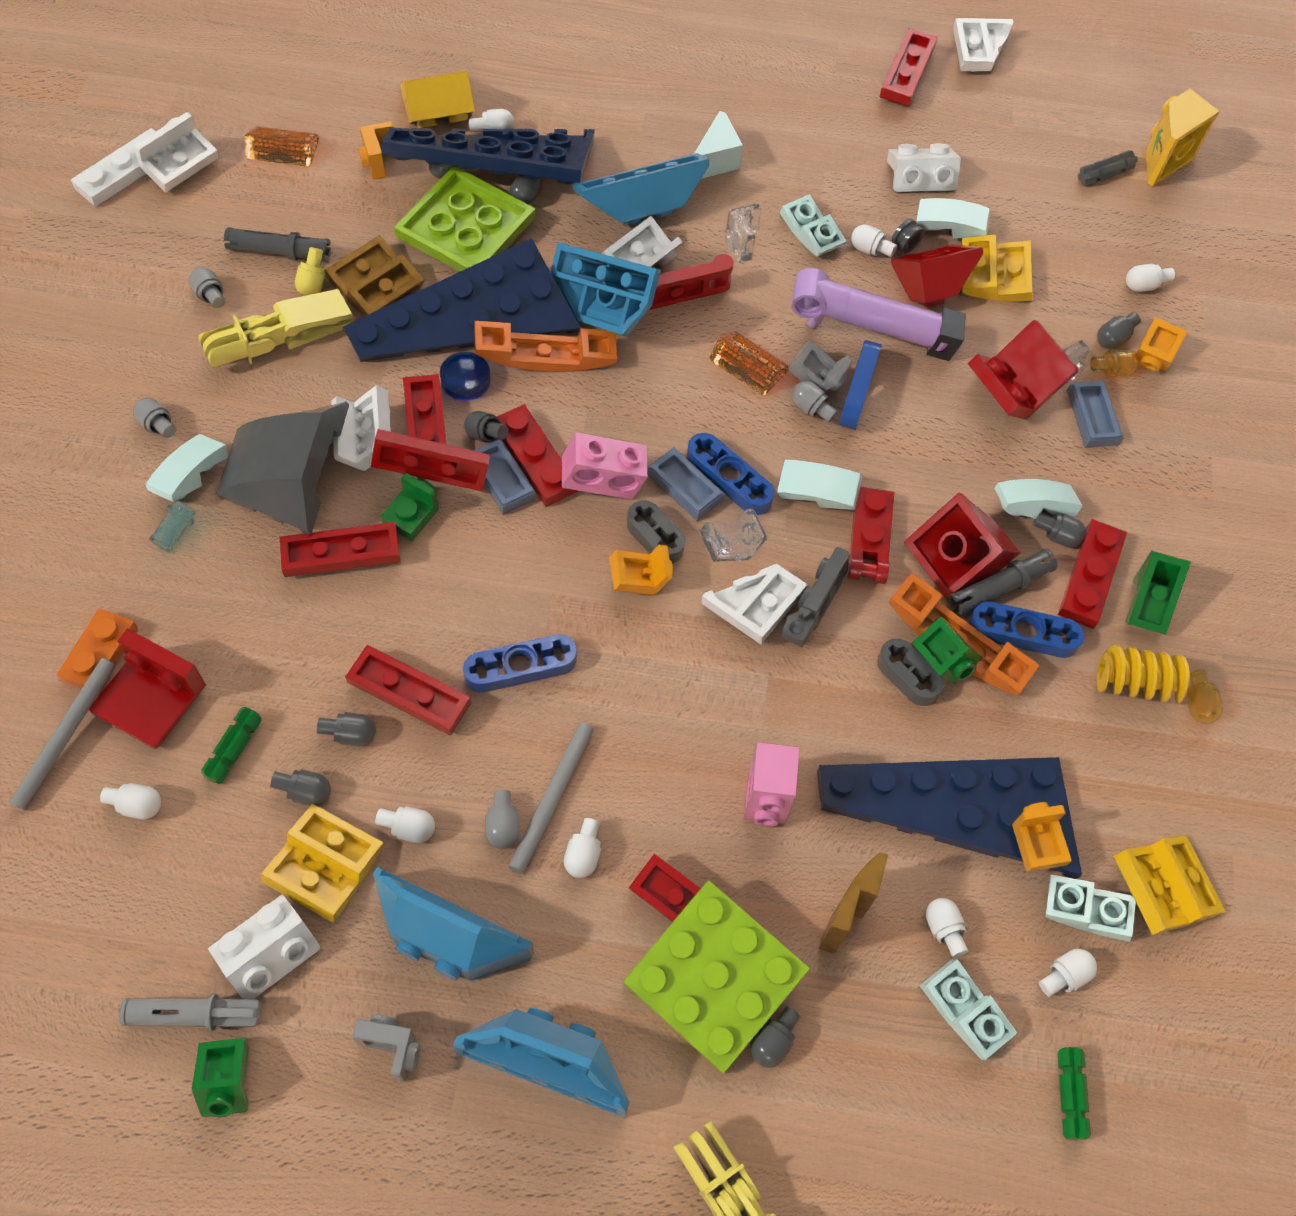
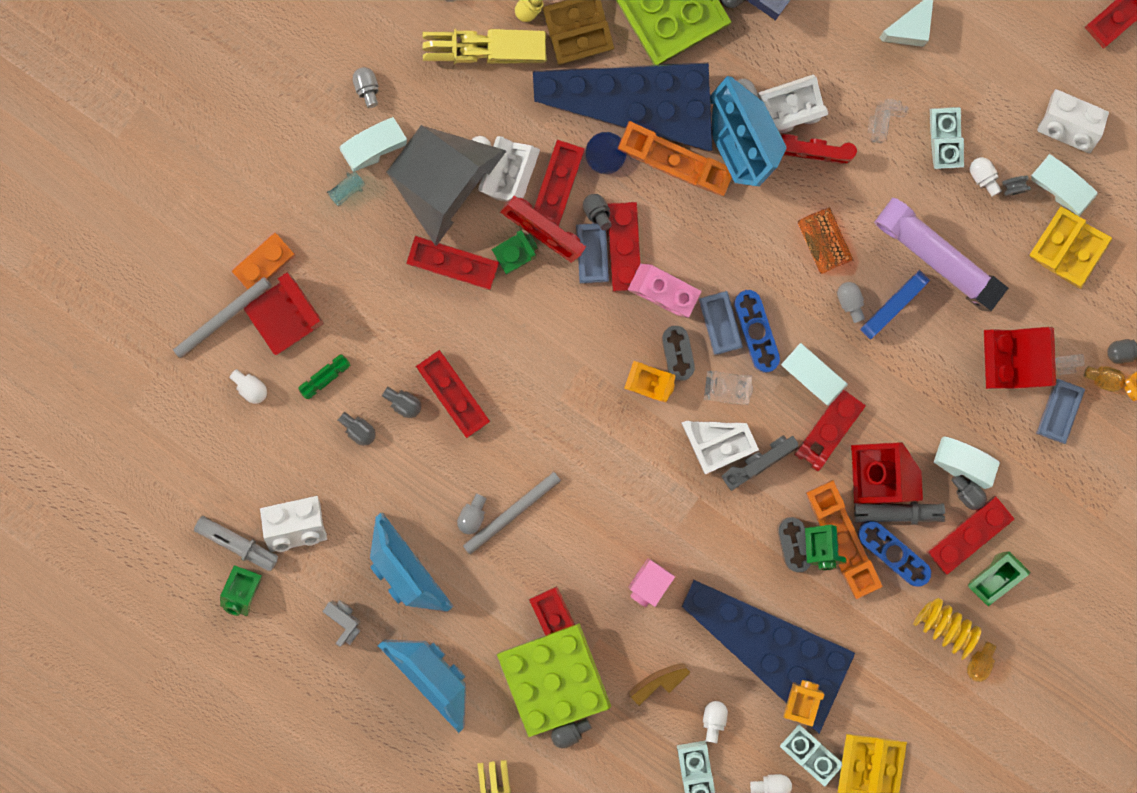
camera: 30 degrees right, 25 degrees up
(322, 863) = (350, 486): yellow slope -> none
(407, 823) = (413, 487): white cylinder -> none
(495, 681) = (541, 420): blue beam -> none
(583, 850) = (513, 559): white cylinder -> none
(645, 190) = (825, 42): dark azure wedge -> none
(817, 367) = (871, 277): light grey bracket -> none
(936, 272) = (1017, 230): red slope -> none

